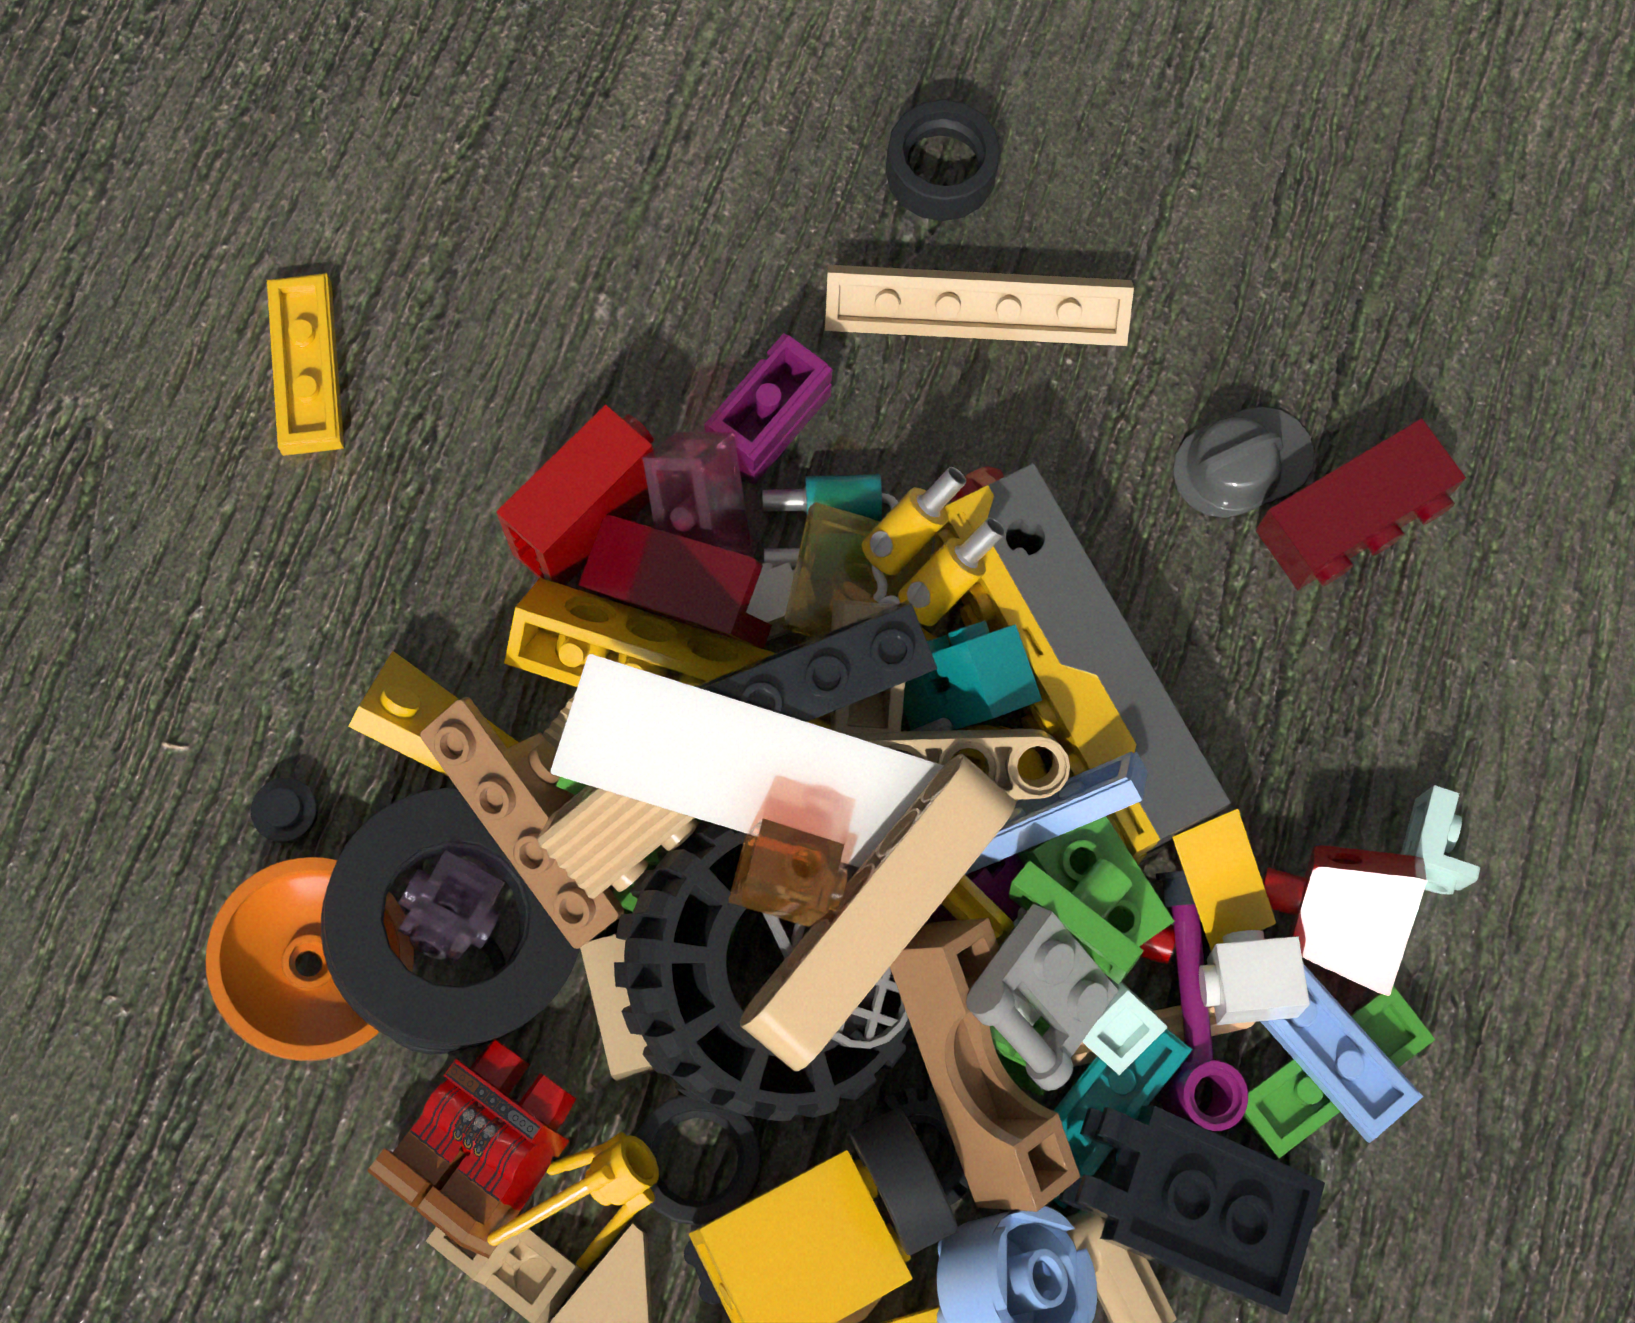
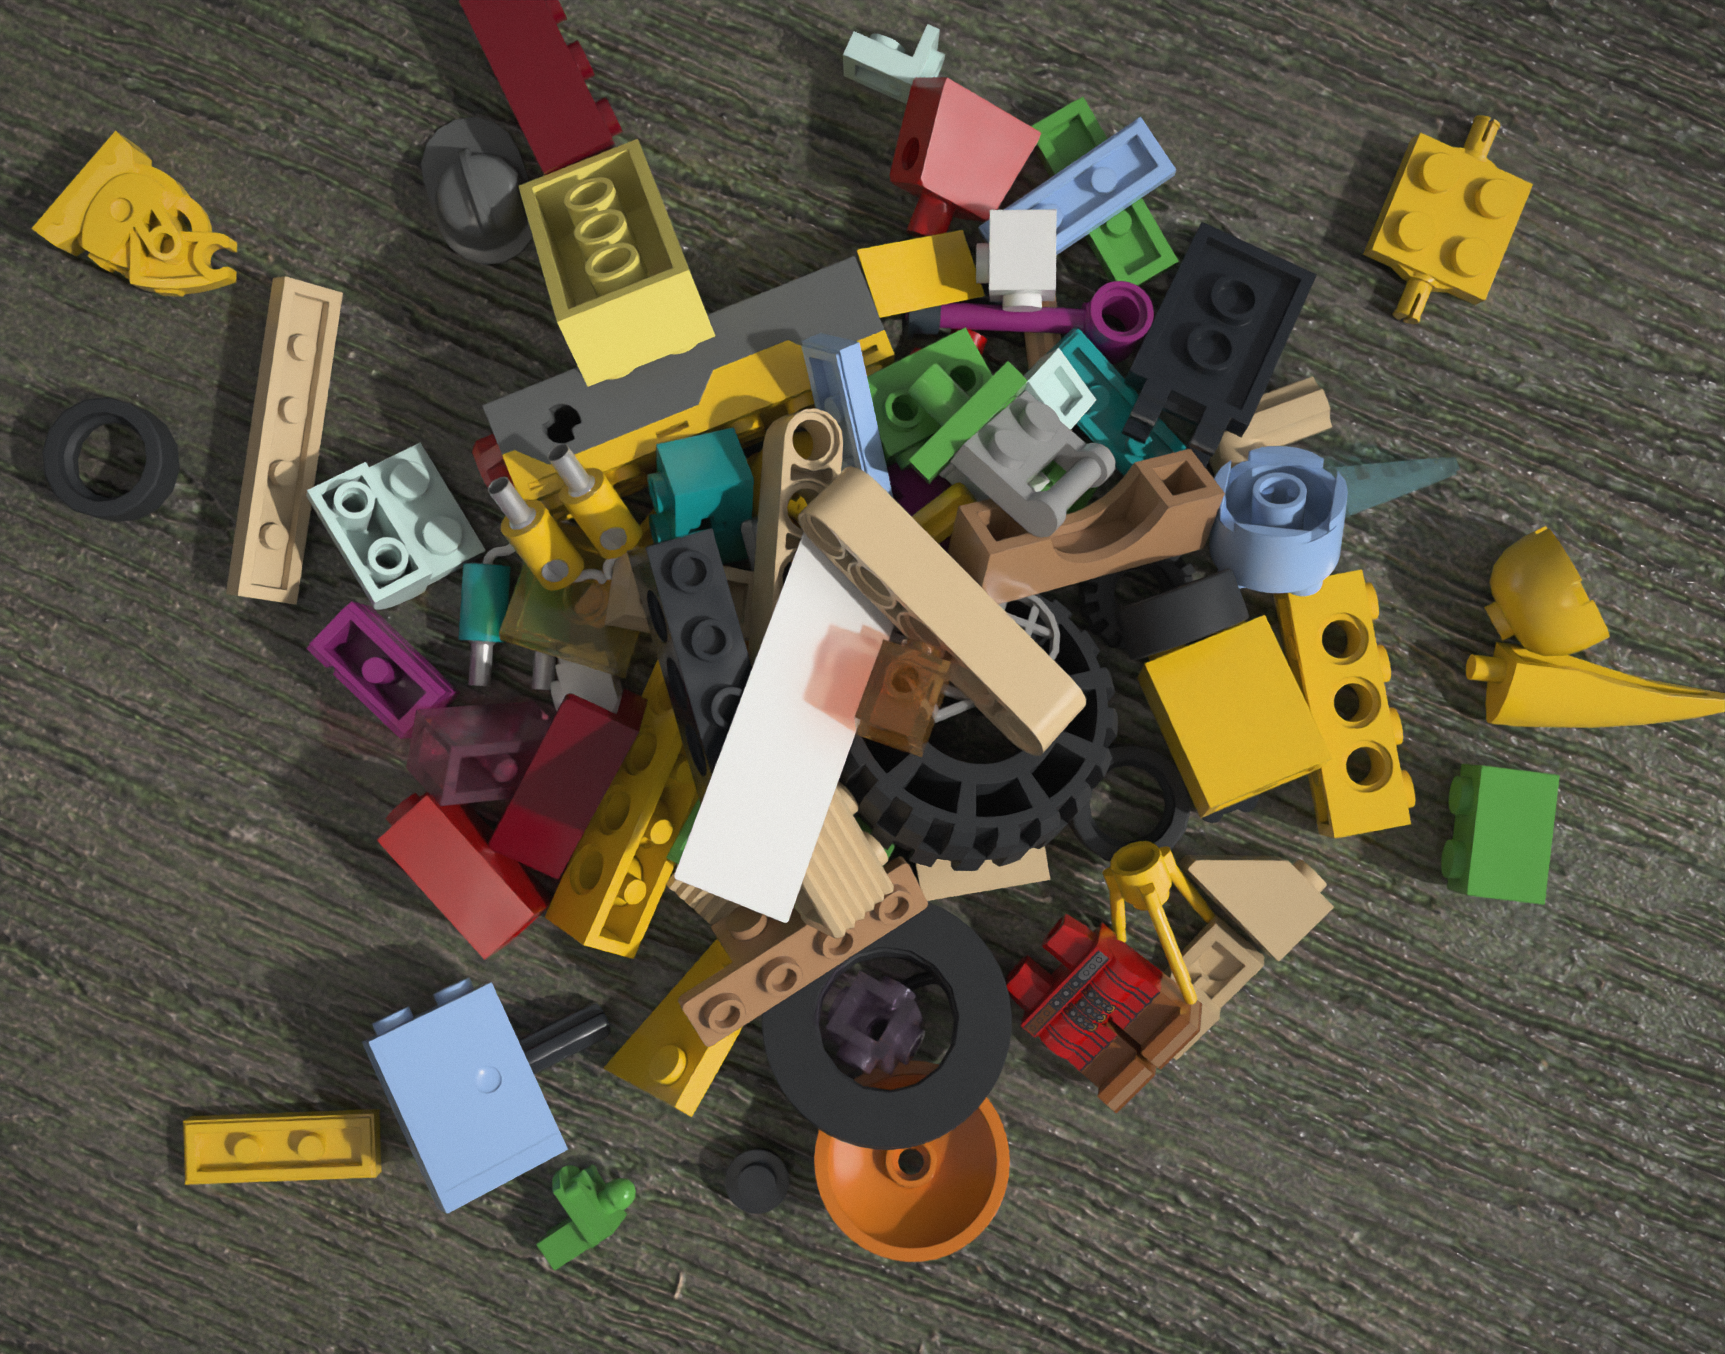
camera: 80 degrees left, 15 degrees up
(253, 650) = (593, 1212): none -> bright green piece
(370, 518) = (471, 1088): none -> light blue piece
(908, 408) = (396, 526): none -> light aqua brick
(1165, 159) = (134, 224): none -> yellow piece
(1187, 573) = (613, 264): none -> light yellow brick

